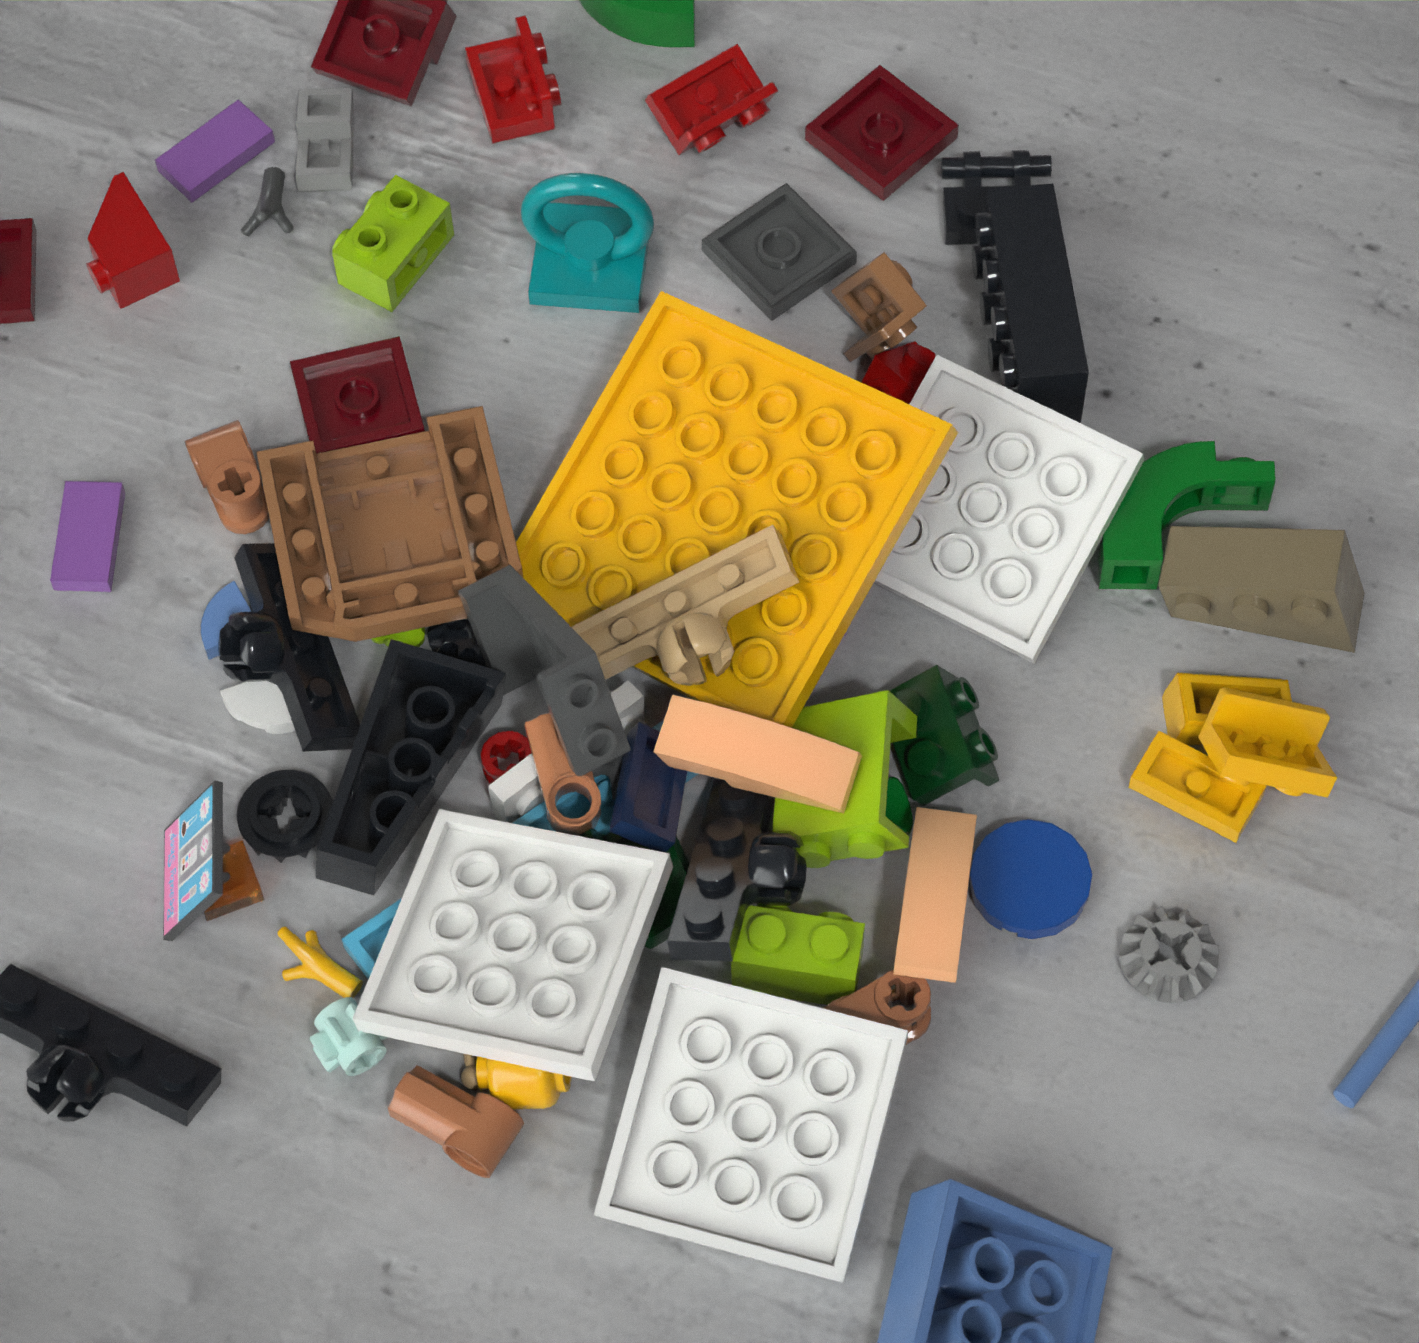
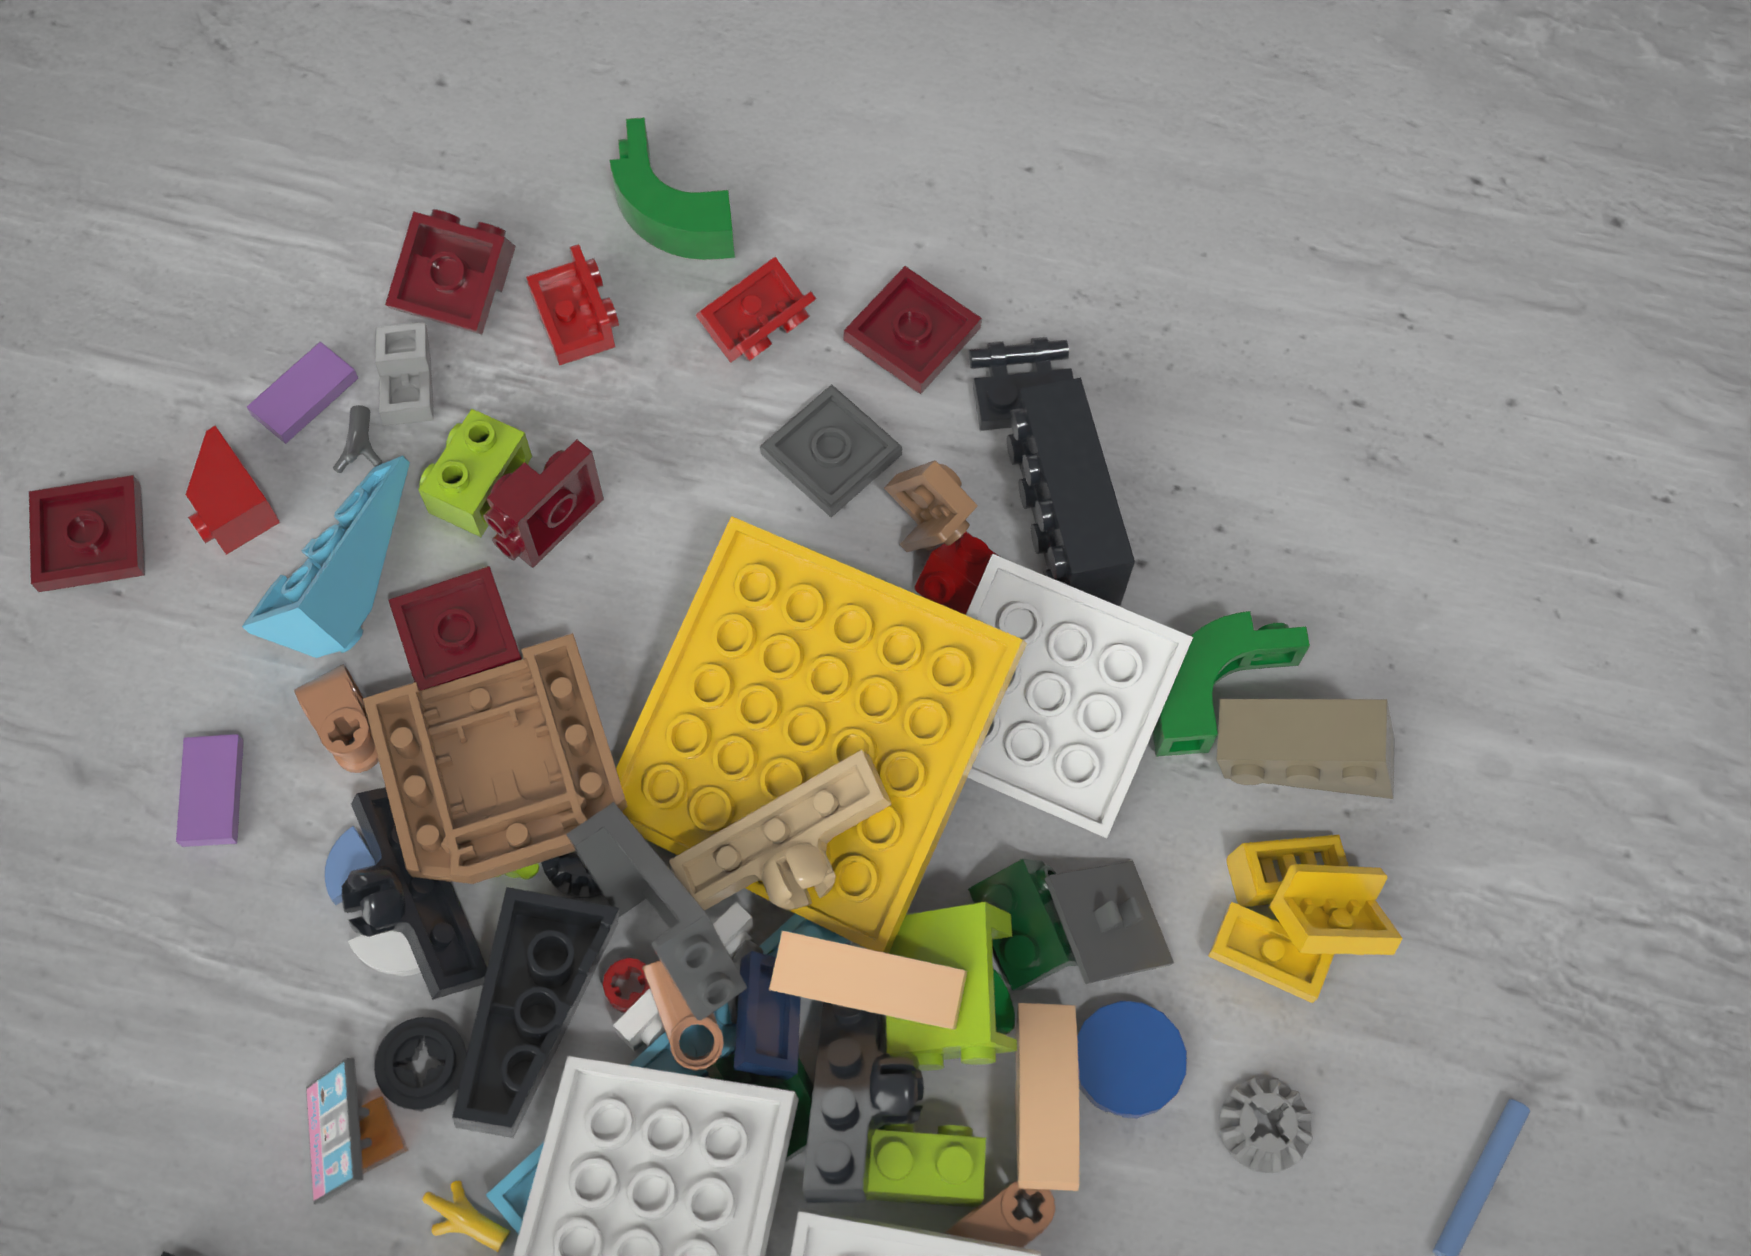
camera: 10 degrees left, 5 degrees up
(243, 330) = (335, 589): none -> medium azure wedge
(463, 278) = (539, 510): none -> dark red plate
(587, 251) = (656, 462): teal tile -> none
(1024, 739) = (1109, 921): none -> dark grey piece

